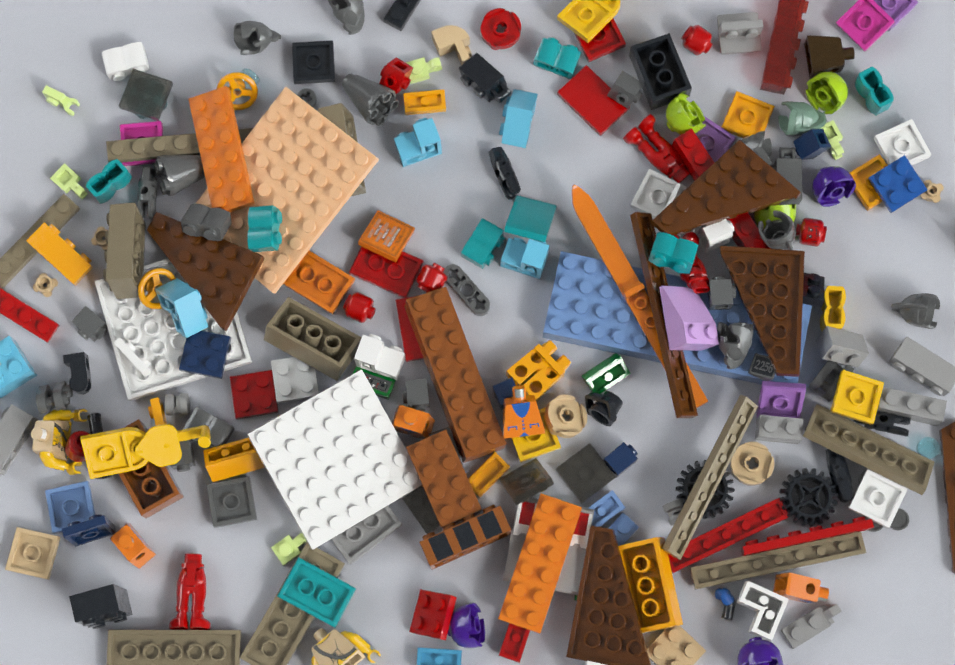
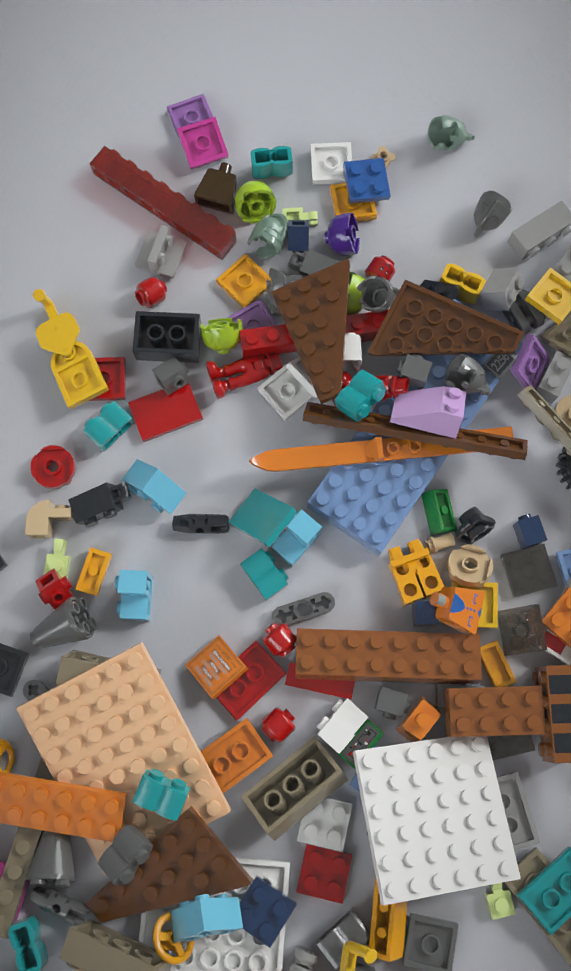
camera: 70 degrees left, 0 degrees up
(576, 384) = (440, 542): none -> tan pin

